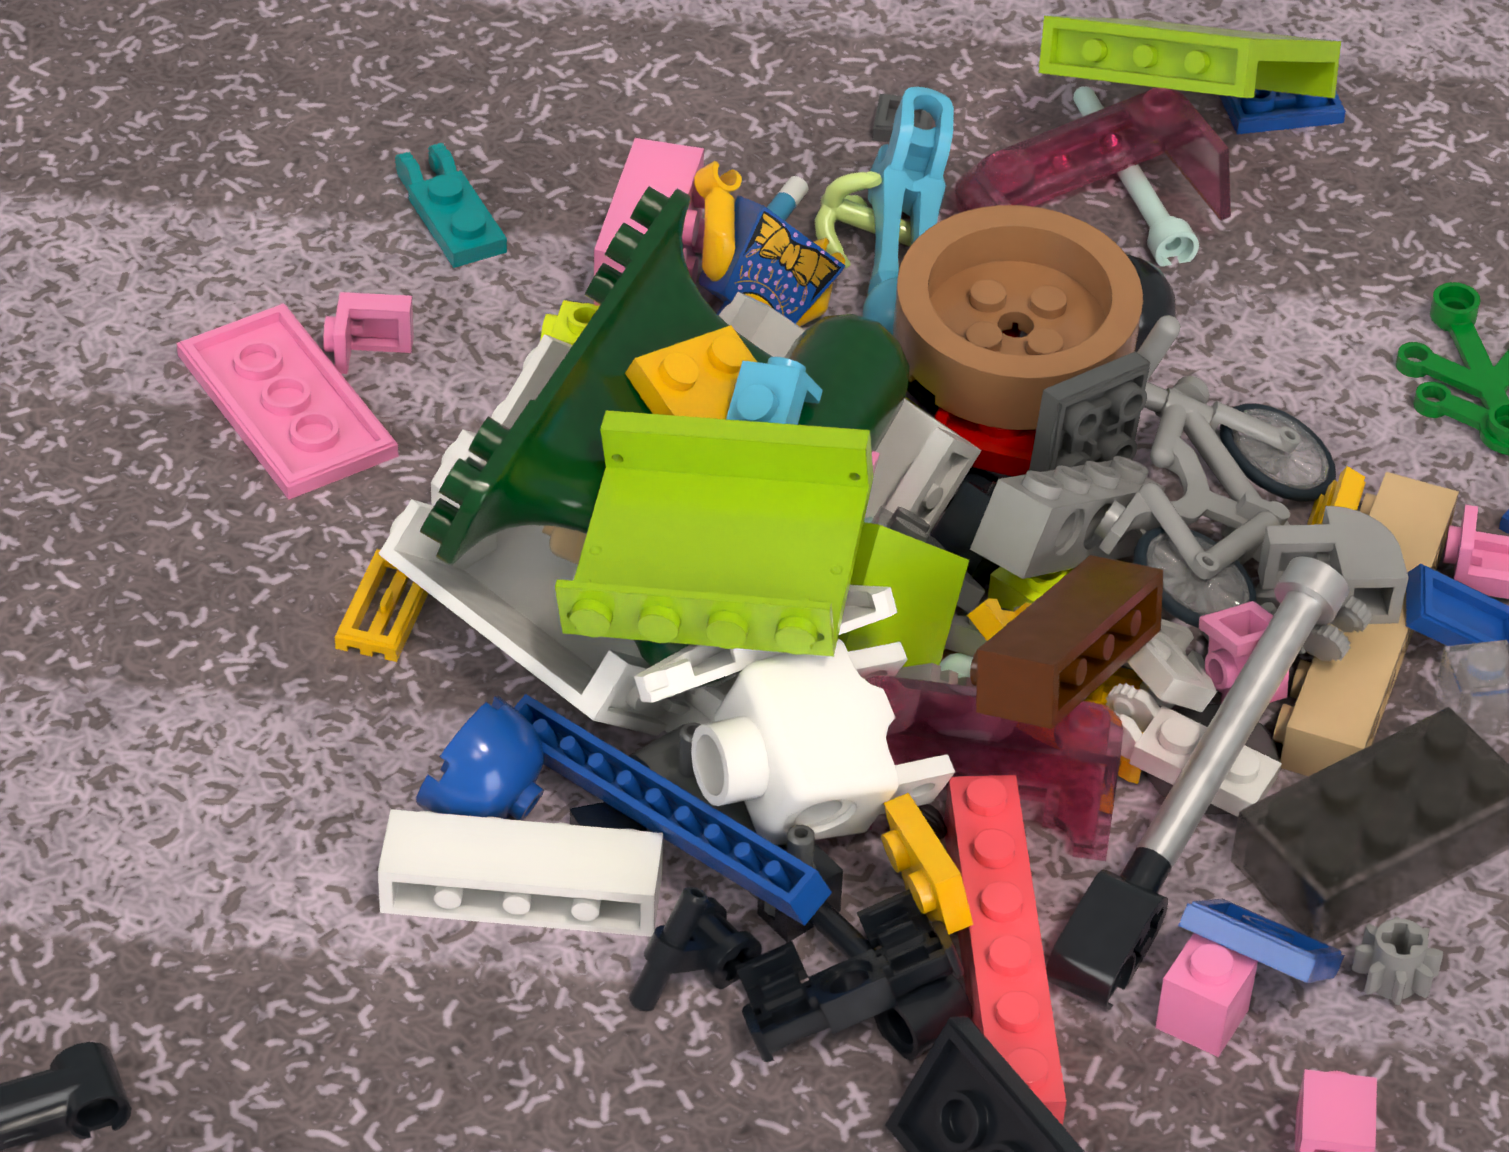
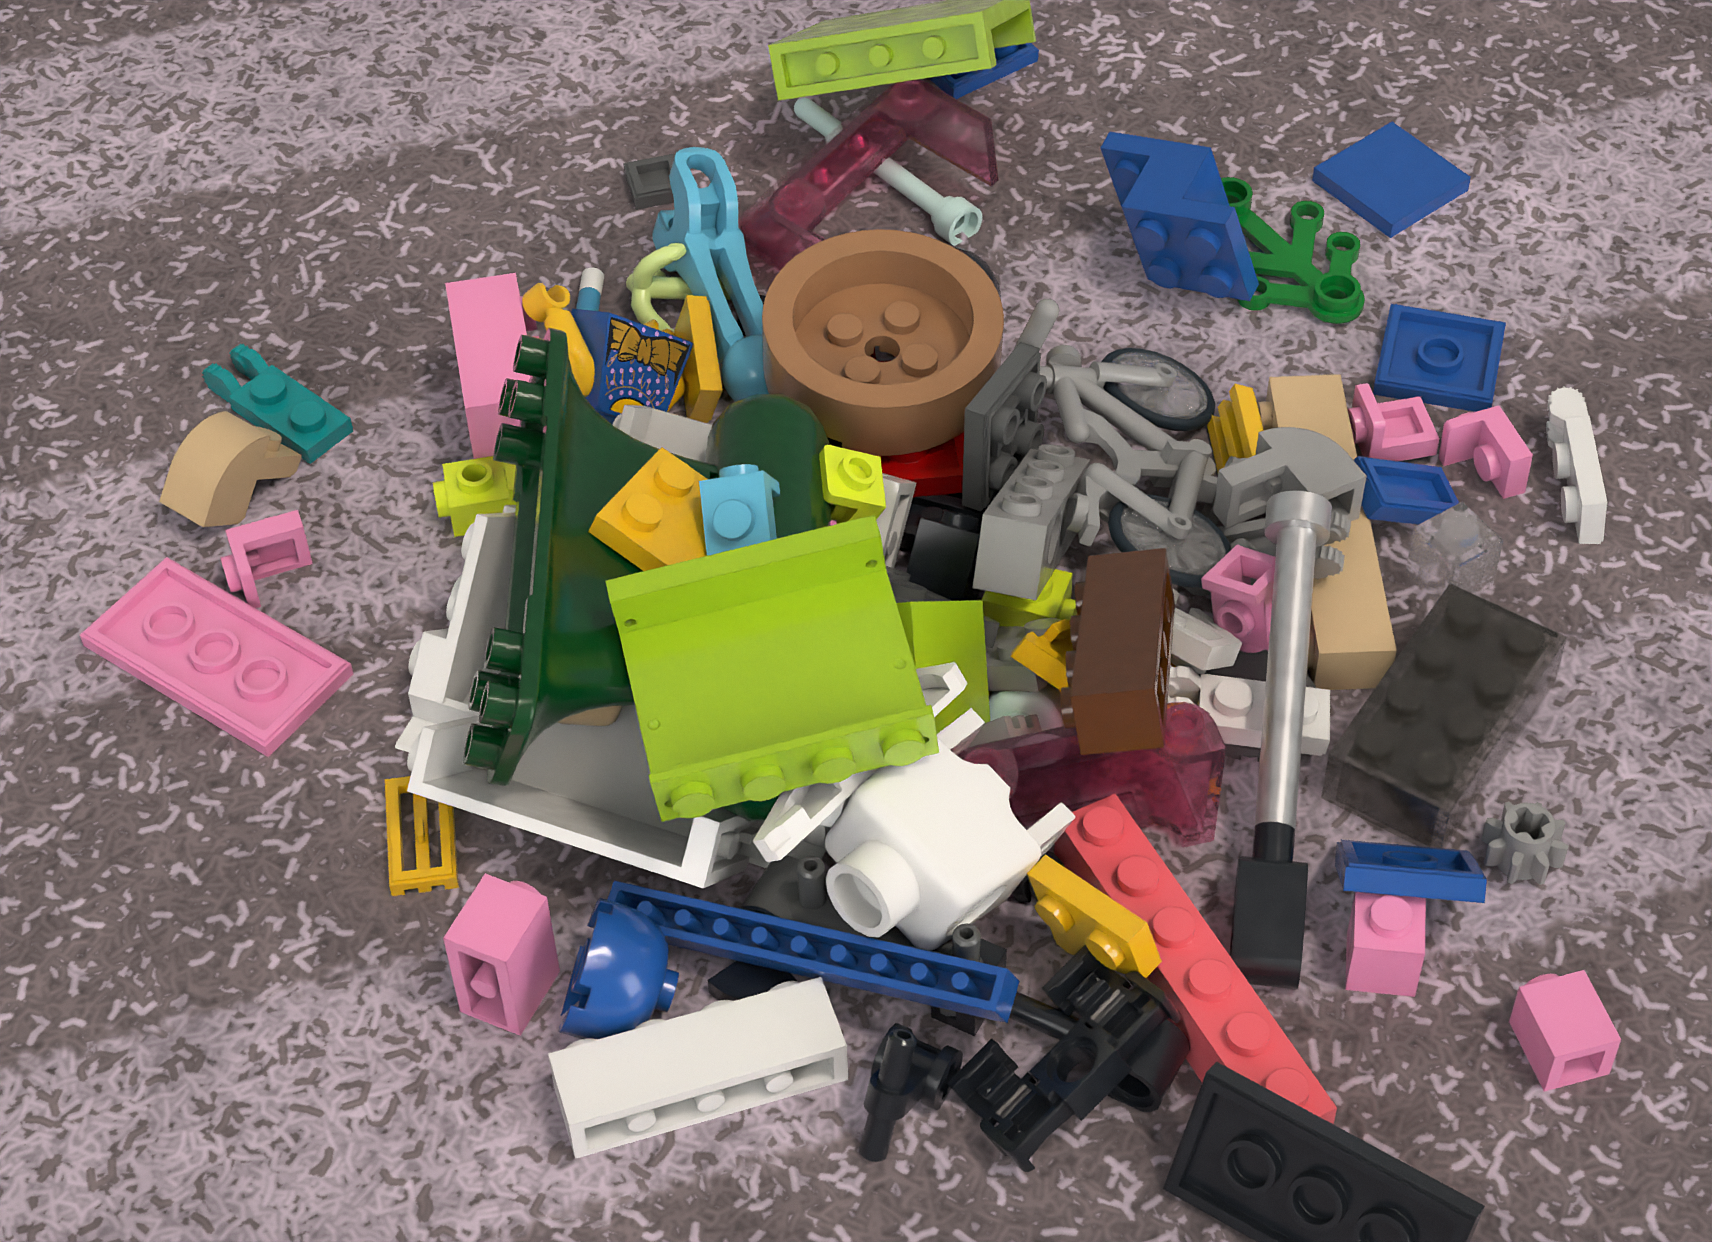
camera: 20 degrees left, 5 degrees up
(364, 238) = (219, 468): none -> tan brick
(394, 716) = (502, 953): none -> bright pink brick
(853, 276) = (701, 370): none -> yellow tile
(907, 431) = (851, 483): none -> neon yellow bracket
(1380, 299) = (1180, 216): none -> blue bracket

